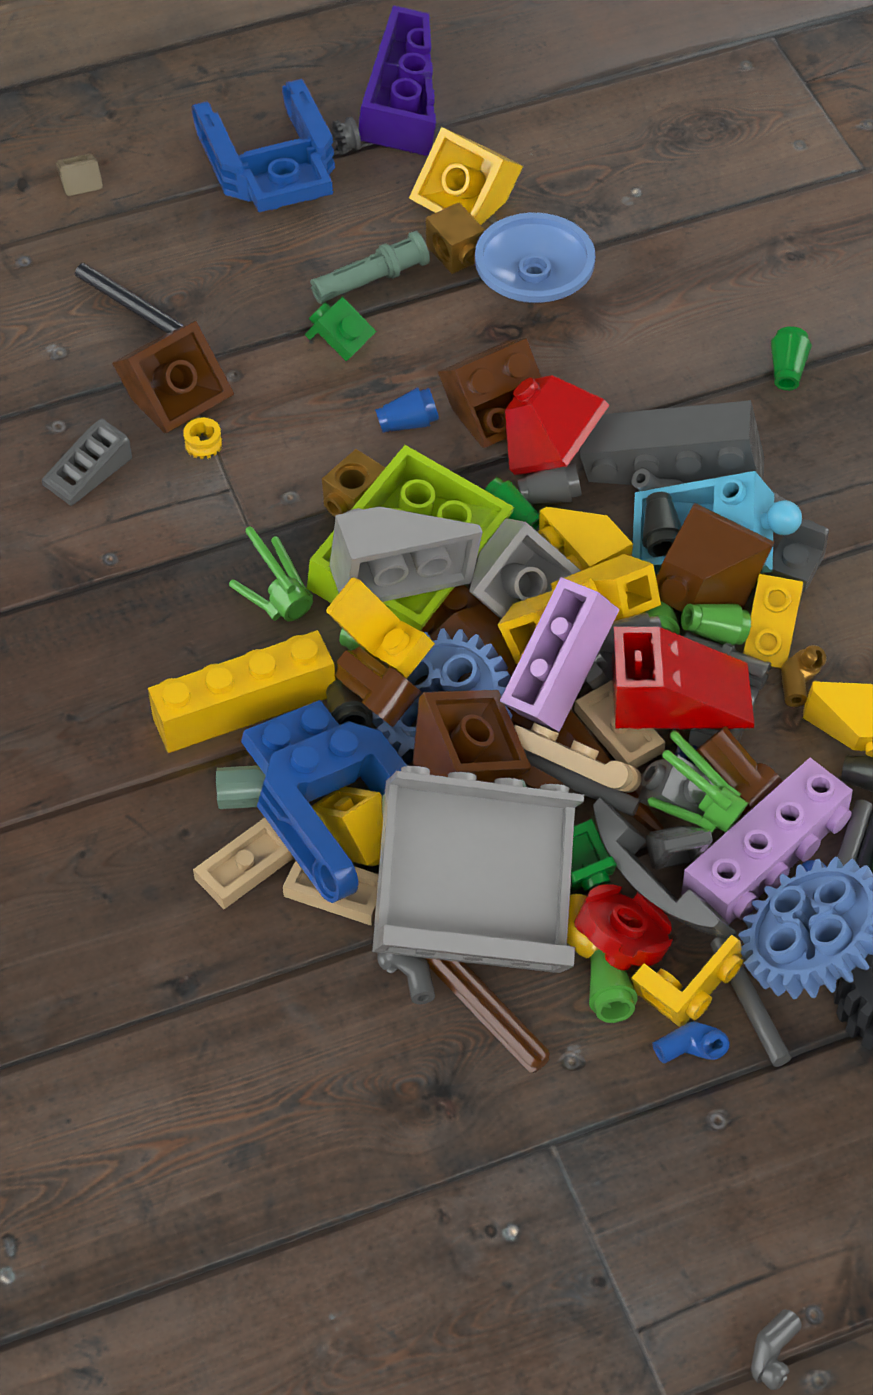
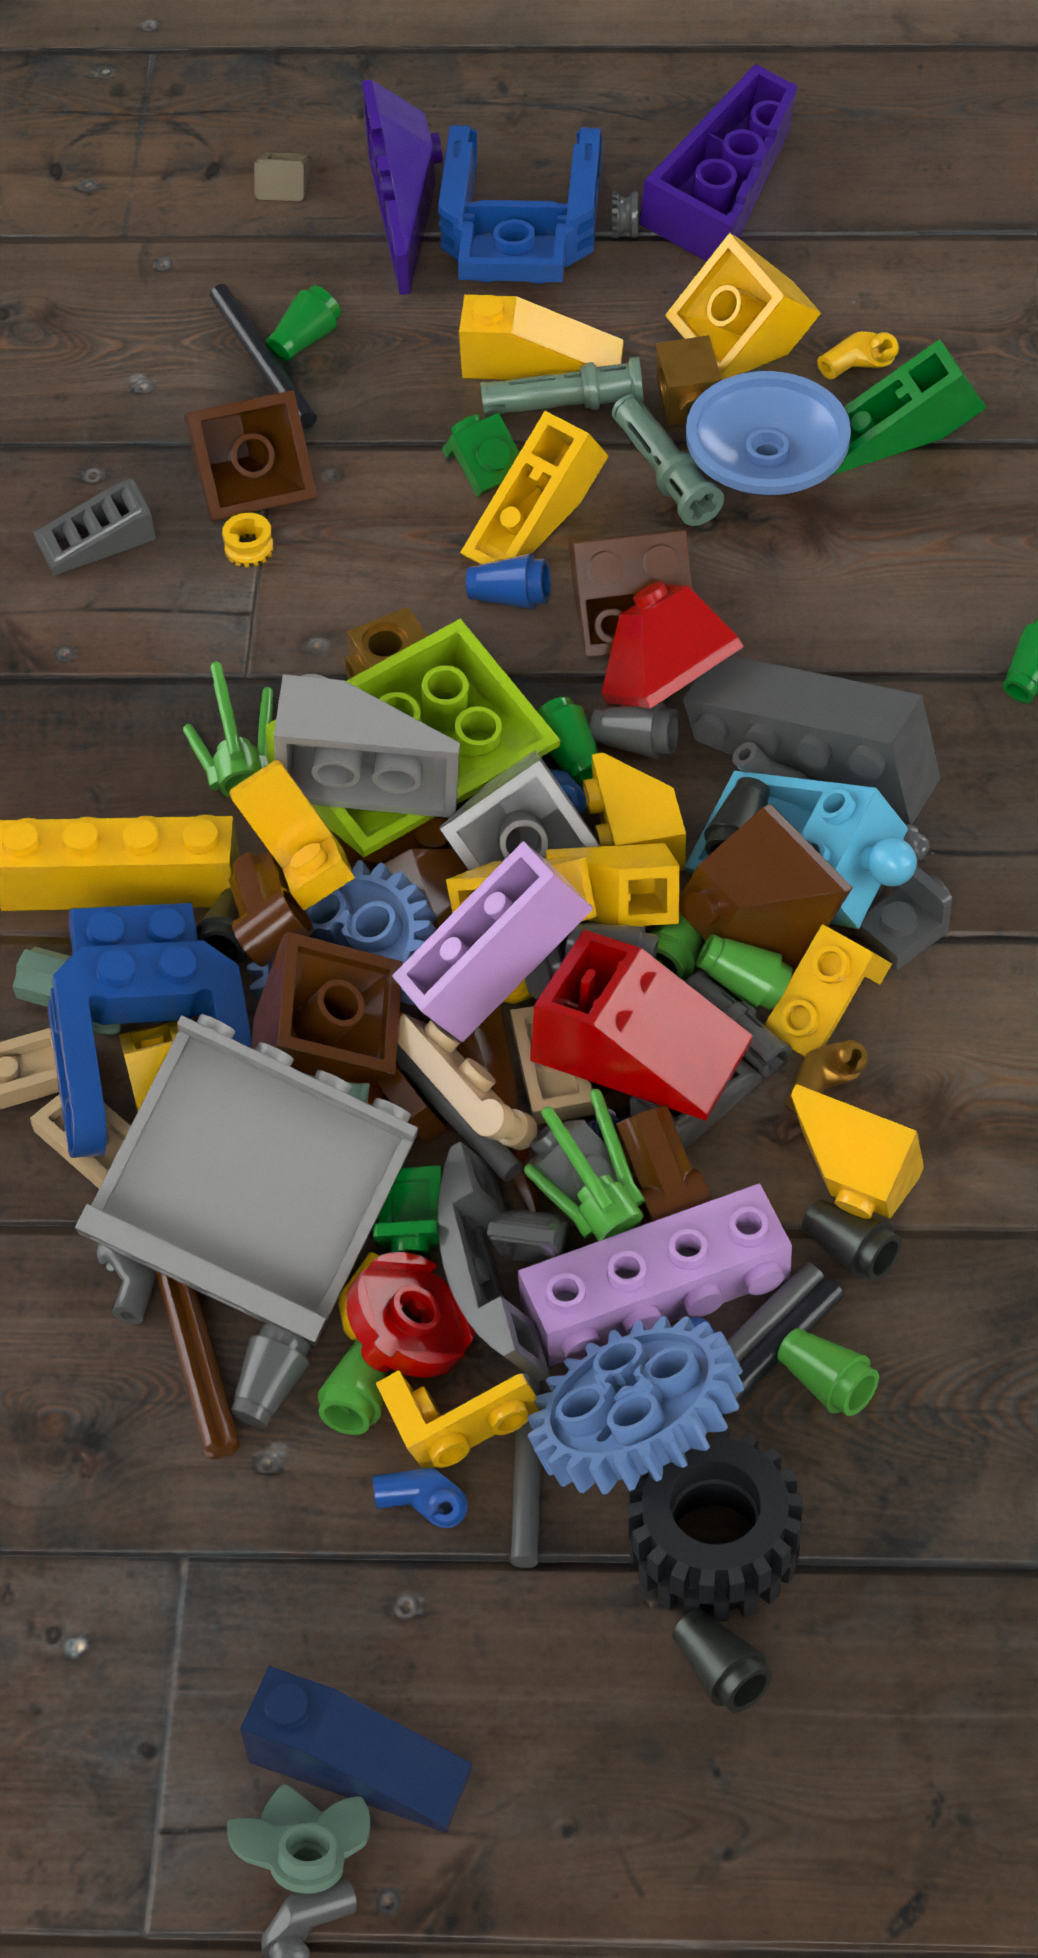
camera: 25 degrees right, 0 degrees up
(160, 270) = (306, 321): none -> green cone
(169, 147) = (403, 173): none -> dark purple wedge
(325, 242) = (521, 339): none -> yellow slope
(394, 345) = (537, 491): none -> yellow slope
(480, 303) = (675, 470): none -> sand green pin
(546, 1000) = (268, 1374): none -> dark grey cone
(557, 185) = (861, 351): none -> yellow arm
(620, 210) = (910, 408): none -> green slope
(742, 1225) = (351, 1750): none -> dark blue slope
(748, 1298) = (300, 1841): none -> sand green plate

